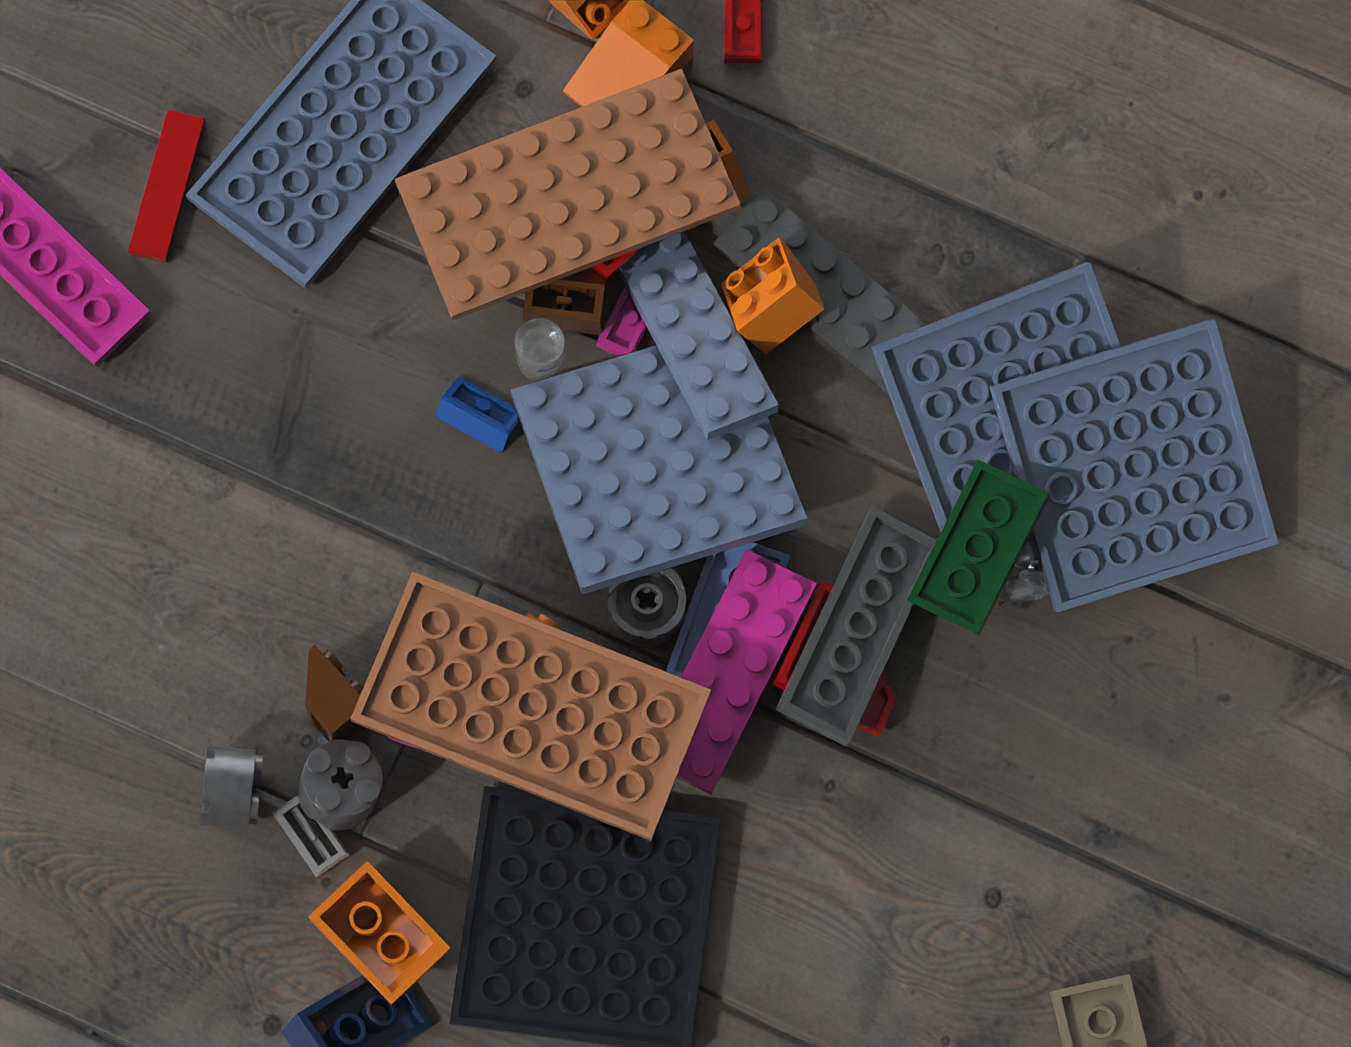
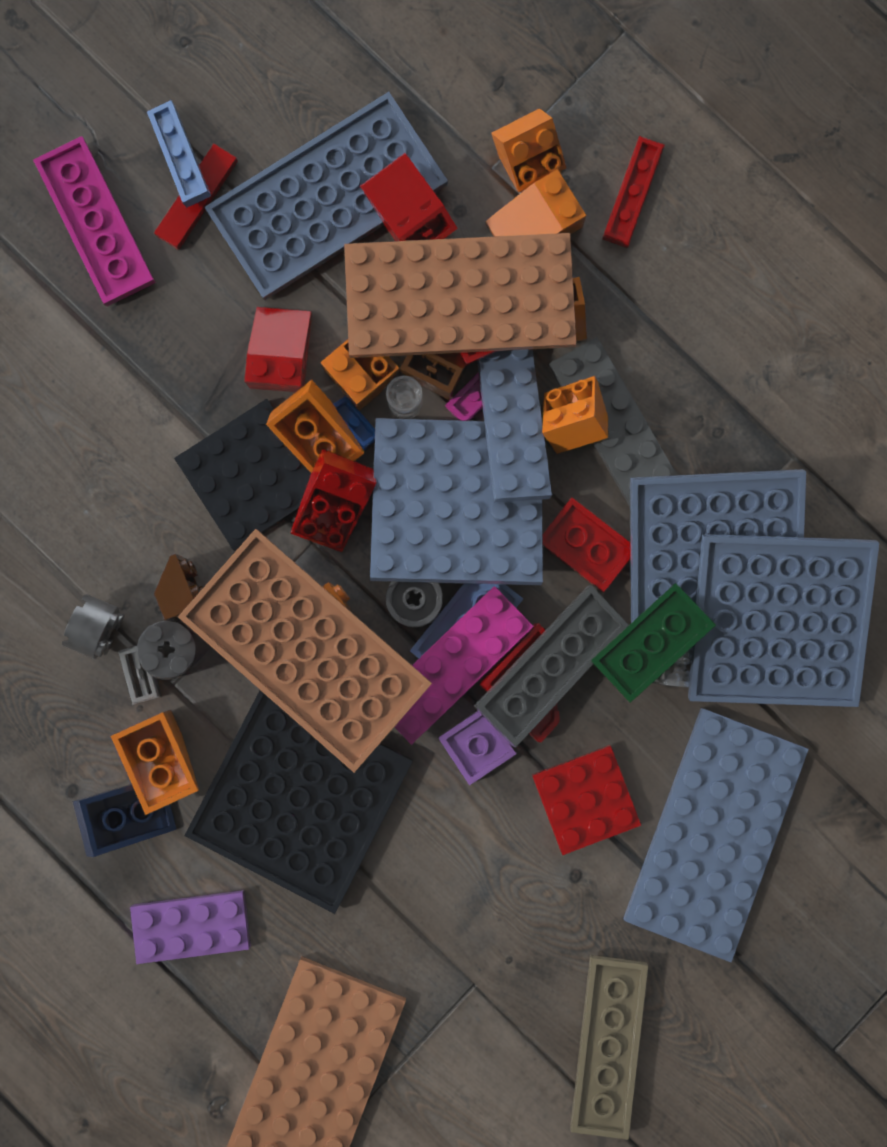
camera: 25 degrees right, 10 degrees up
(128, 138) = (178, 154): none -> medium blue plate
(349, 346) = (278, 350): none -> red slope
(368, 520) = (245, 475): none -> black plate
(438, 434) = (312, 423): none -> orange slope
(457, 101) = (407, 203): none -> red slope
(470, 344) = (359, 377): none -> orange slope
(493, 514) = (333, 500): none -> red slope
(798, 769) = (476, 747): none -> medium lavender plate
(848, 458) = (587, 545): none -> red plate
(969, 791) = (586, 800): none -> red plate
(1156, 777) = (715, 835): none -> sand blue plate

